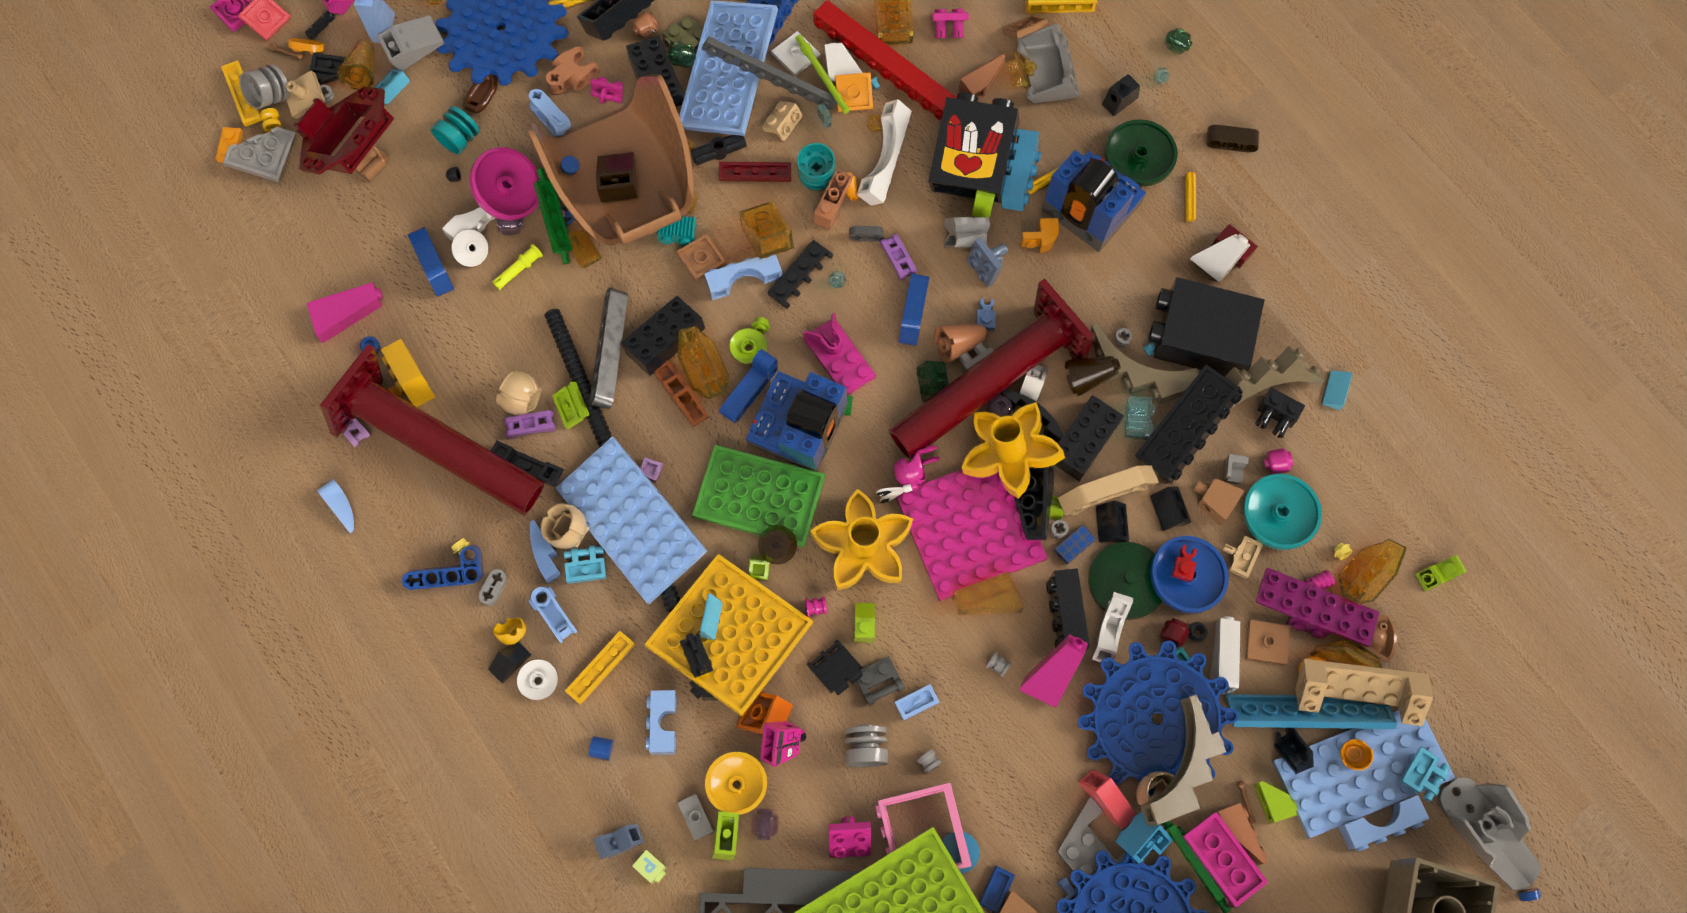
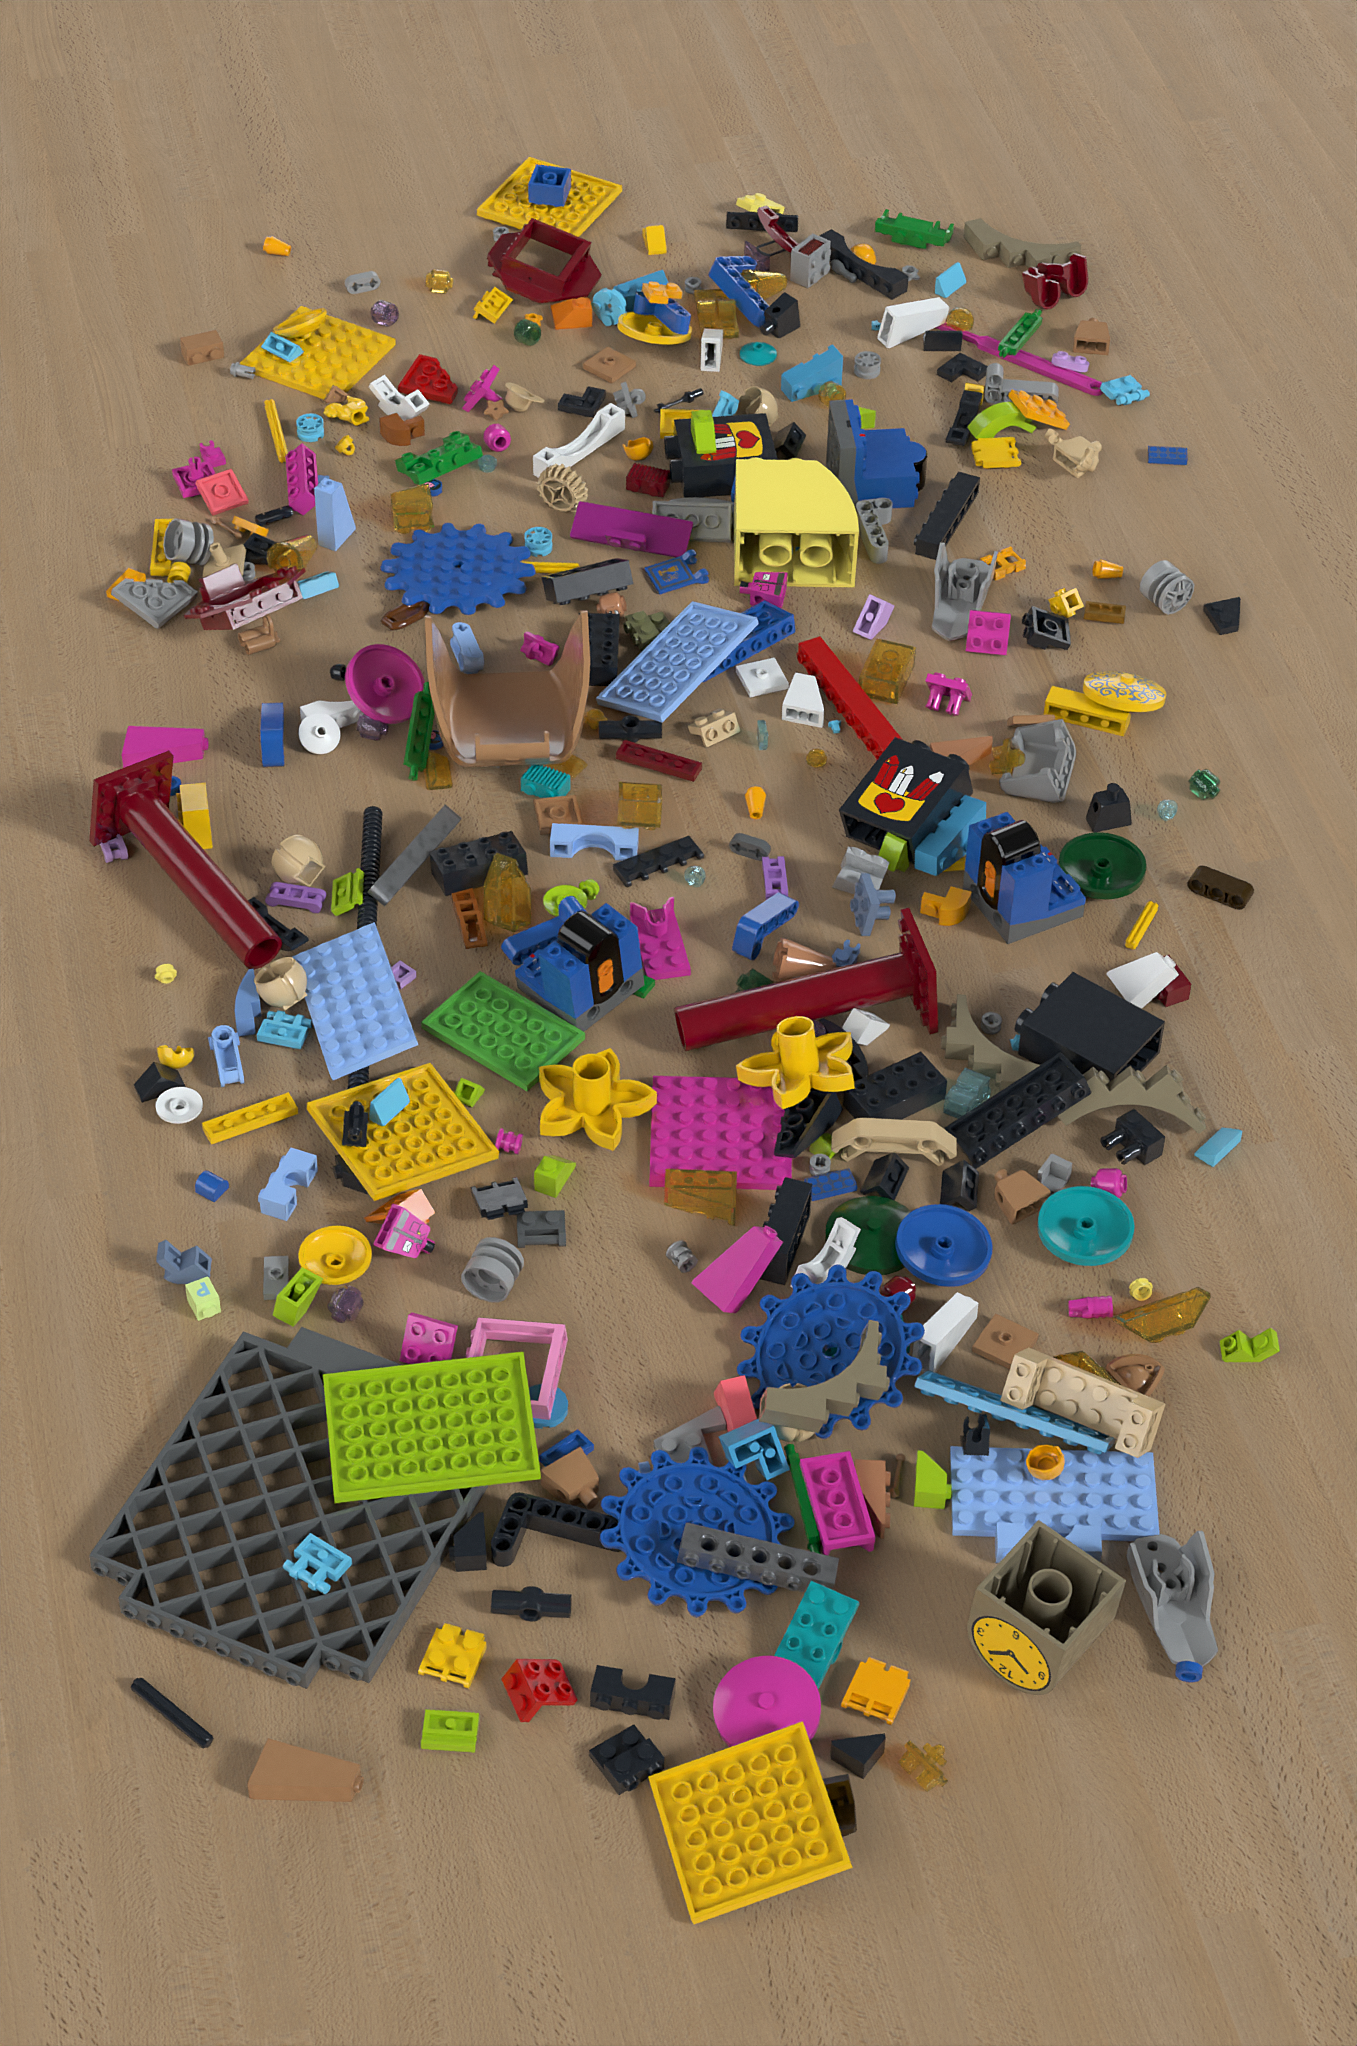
camera: 25 degrees right, 25 degrees down
(338, 502) = (63, 899): light blue piece -> none
(410, 41) = (356, 549): light grey slope -> none
(443, 572) = (136, 984): blue beam -> none
(455, 130) = (359, 630): teal wheel -> none
(489, 585) = (178, 1018): light grey beam -> none
(524, 261) = (369, 762): neon yellow pin -> none
(568, 73) = (507, 623): nougat piece -> none
(569, 165) = (462, 696): blue tile -> none
(616, 177) = (504, 718): dark brown slope -> none
(681, 55) = (634, 636): clear green head -> none
(765, 71) = (717, 671): dark grey plate -> none
(777, 544) = (497, 1070): dark brown cone -> none
(807, 50) = (774, 674): lime bar -> none
(816, 157) = (726, 771): teal wheel -> none
(832, 199) = (726, 807): nougat slope -> none
(855, 90) = (805, 722): light orange tile -> none
(894, 124) = (835, 759): white arch -> none
(908, 475) = (673, 1058): dark pink hair -> none
(916, 702) = (571, 1259): light blue plate -> none
(929, 761) = (556, 1311): light grey wheel -> none
(1090, 372) = (927, 1030): dark brown cone -> none
(1183, 566) = (940, 1231): red plate -> none
(1203, 631) = (927, 1304): black plate -> none
(1243, 556) = (1020, 1255): tan plate -> none
(1316, 609) = (1074, 1324): magenta bracket -> none
(1420, 770) = (1117, 1503): medium azure plate -> none

